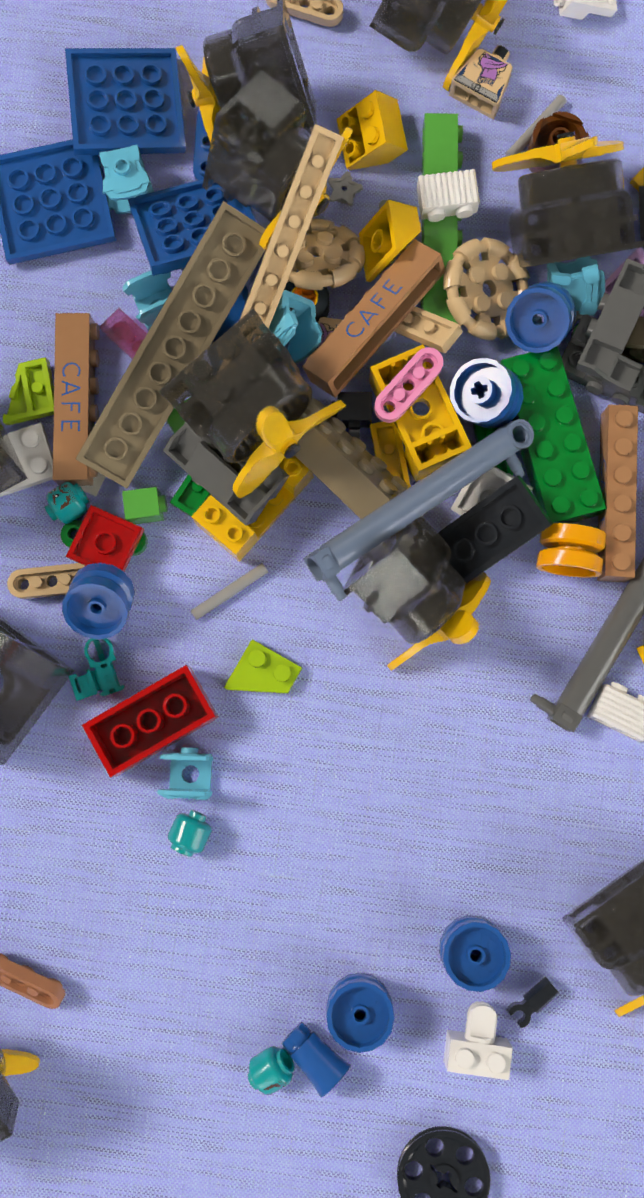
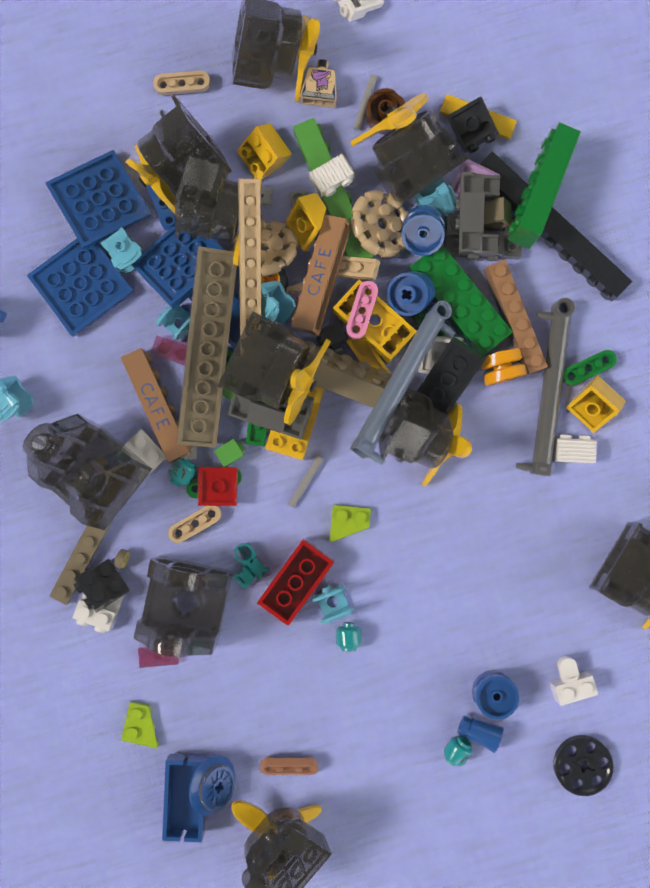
camera: 25 degrees left, 5 degrees up
(32, 393) = (127, 412): lime wing -> none
(98, 601) = (231, 524): blue wheel -> none
(479, 971) = (557, 637): blue wheel -> none
(534, 1001) = (592, 643): black bar -> none

